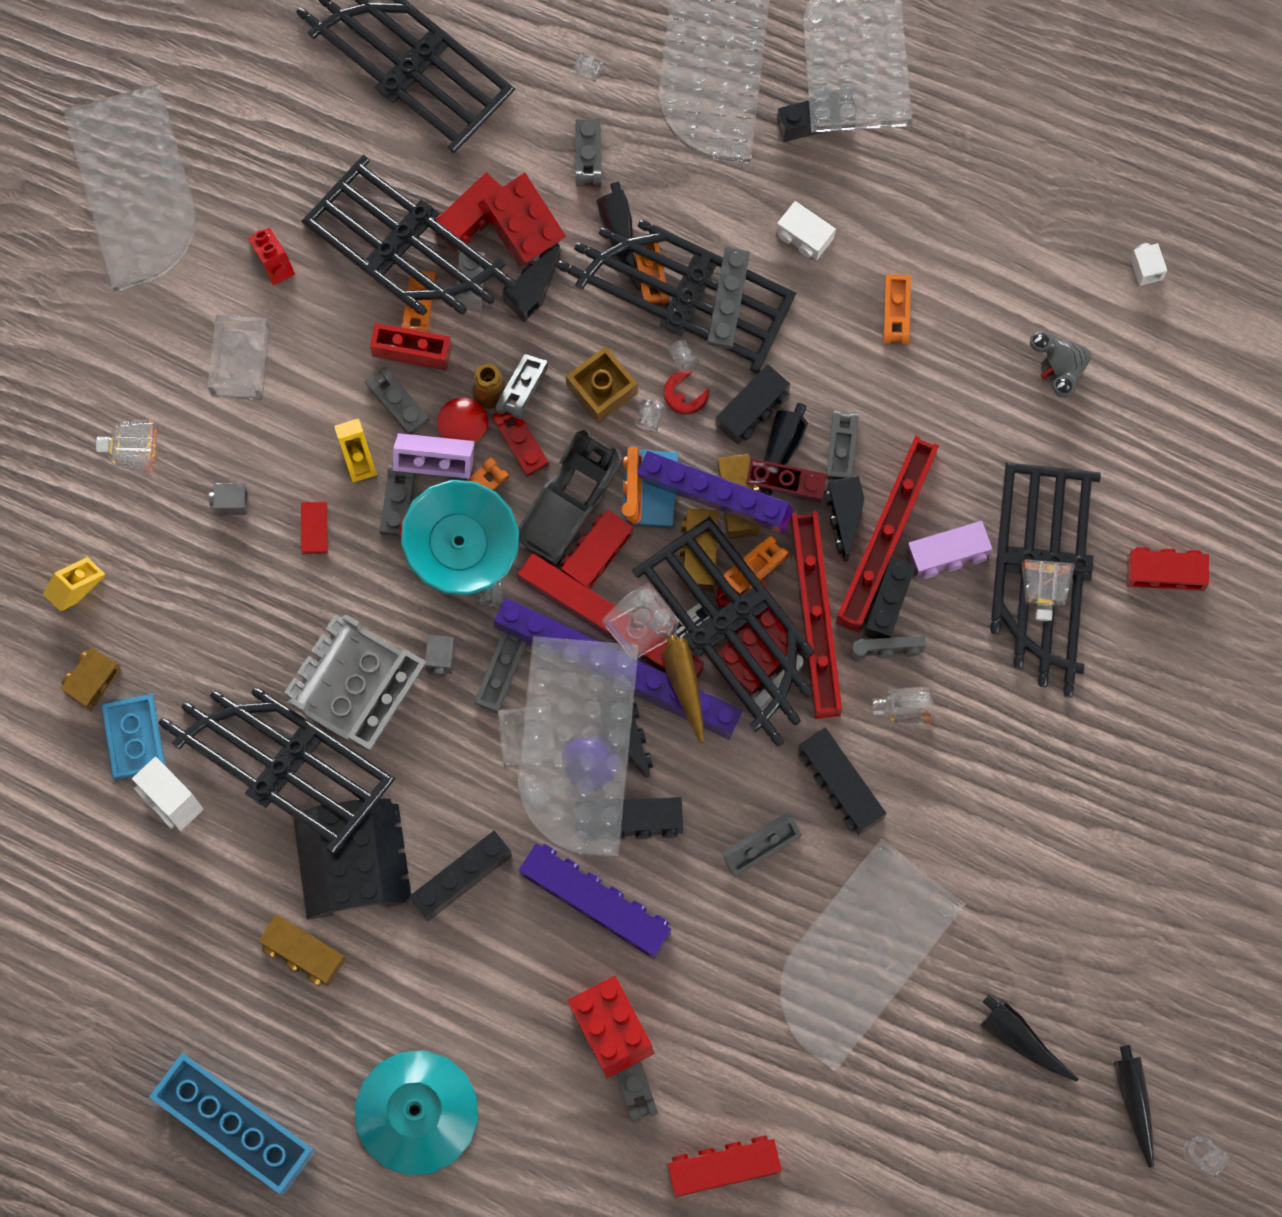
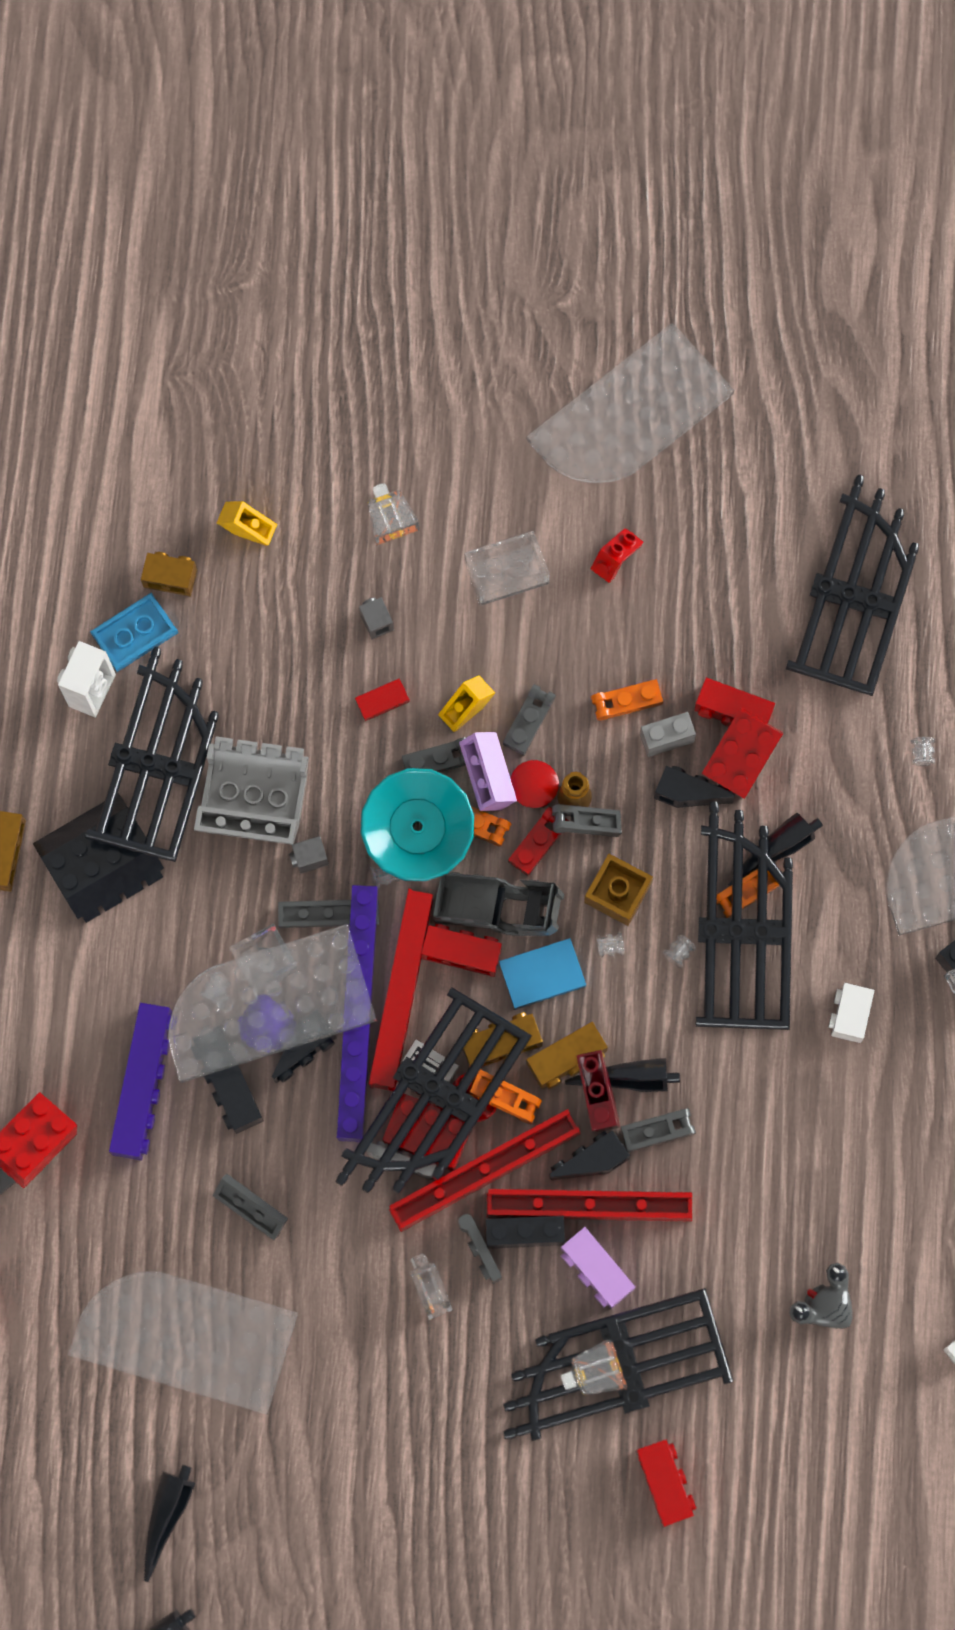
camera: 70 degrees right, 0 degrees up
(399, 240) = (680, 657): black piece -> none
(411, 346) = (581, 708): red brick -> none
(461, 875) = (118, 956): black brick -> none
(588, 152) = (841, 786): dark grey plate -> none
(633, 486) = (533, 956): orange plate -> none
(641, 620) = (404, 1014): clear slope -> none
(675, 401) = (635, 963): red head -> none
(683, 679) = (363, 1074): pearl gold piece -> none
(715, 492) = (554, 1031): dark purple brick -> none
(728, 298) = (752, 968): dark grey plate -> none
(753, 405) = (660, 1033): black brick -> none
(841, 781) = (336, 1256): black brick -> none
(897, 308) = (814, 1127): orange plate -> none

